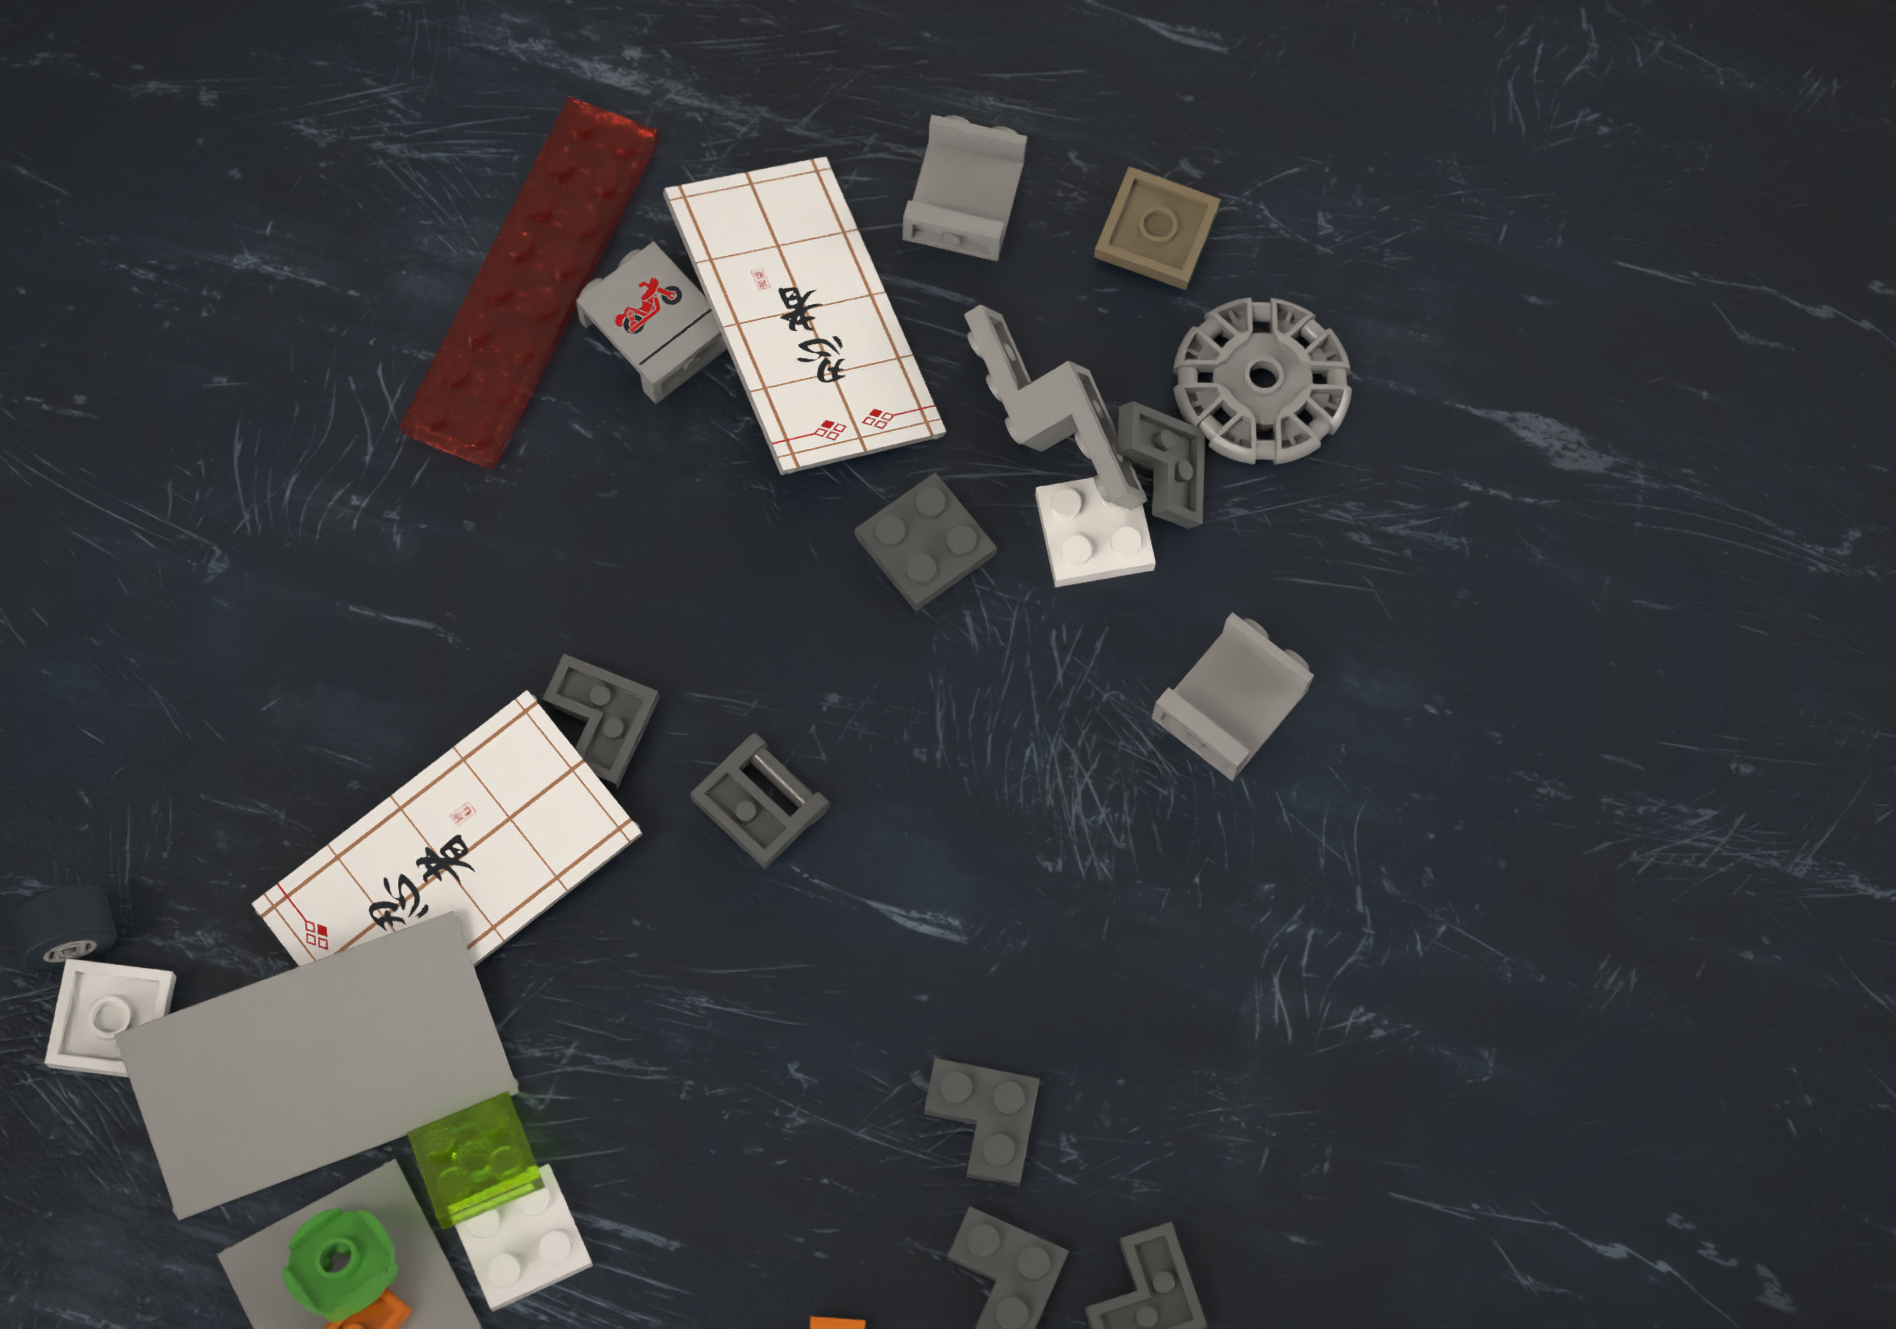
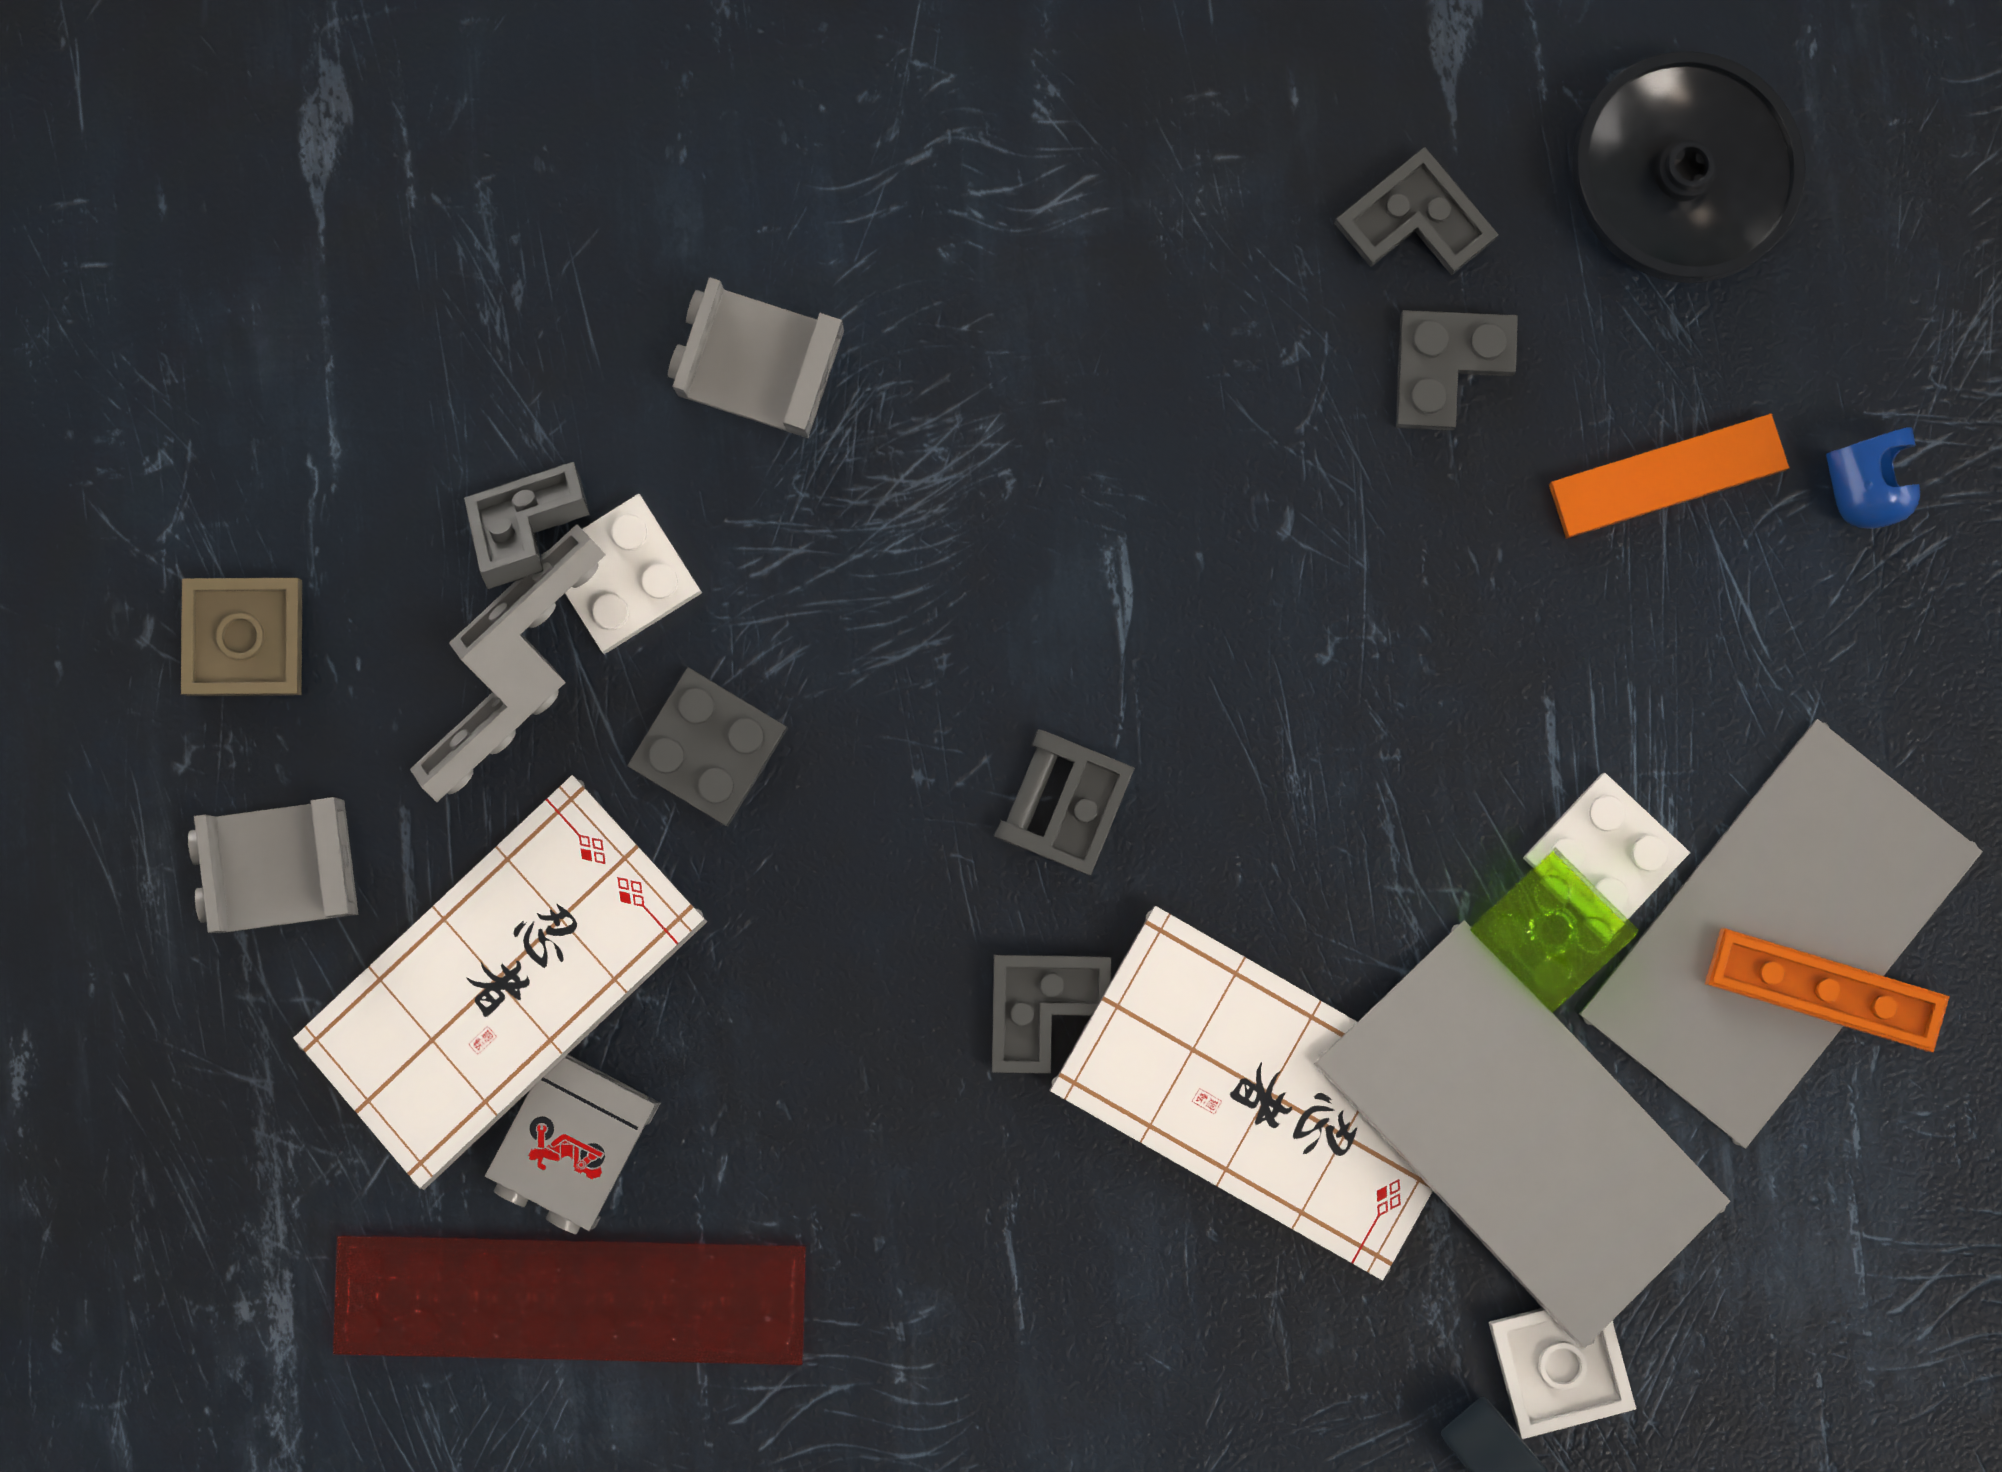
camera: 105 degrees left, 15 degrees up
(359, 1283) = (1722, 1047): bright green plate -> none
(997, 1104) = (1284, 434): dark grey plate -> none
(1258, 407) = (404, 483): light grey plate -> none

